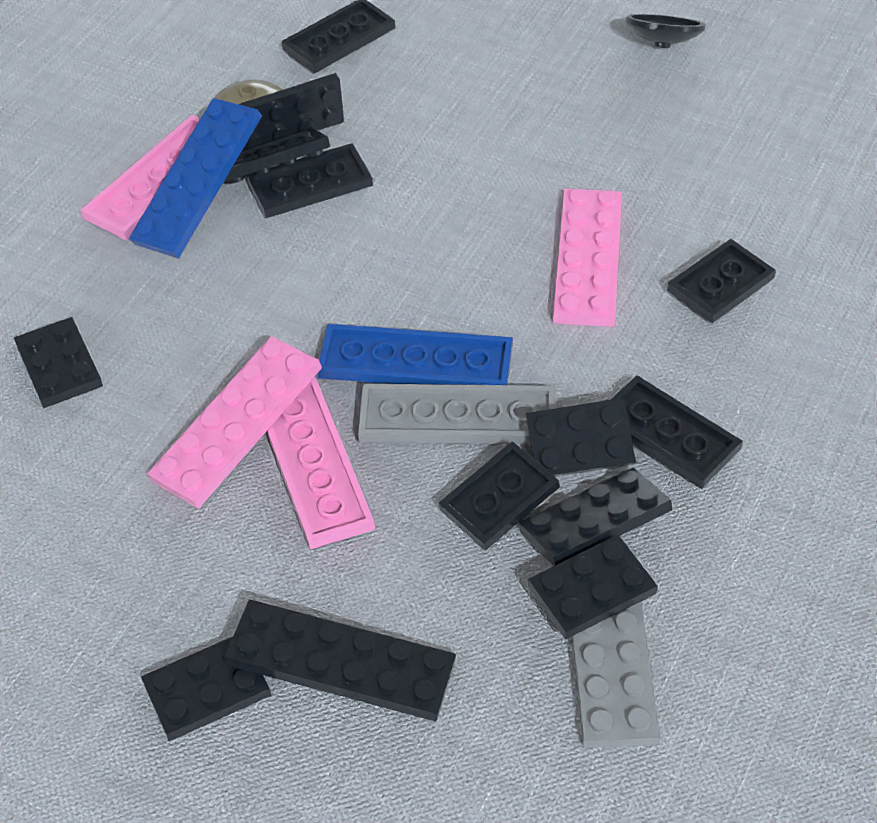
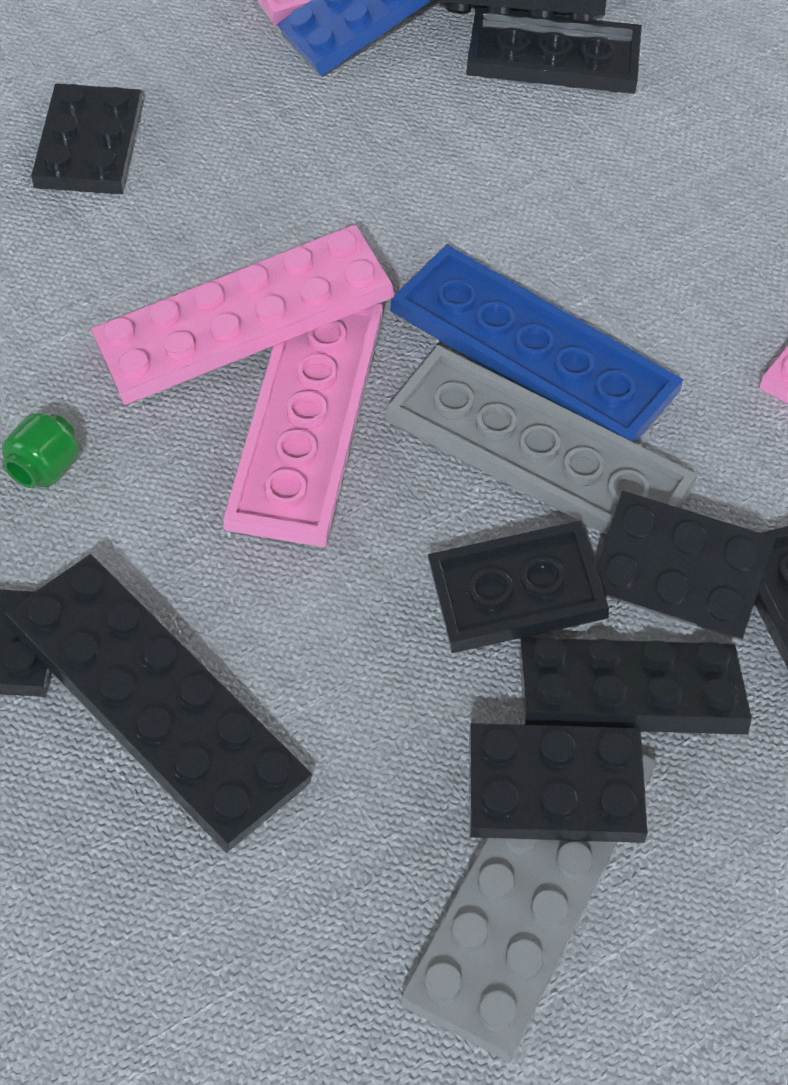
camera: 25 degrees right, 5 degrees up
(169, 559) = (39, 450): none -> green head

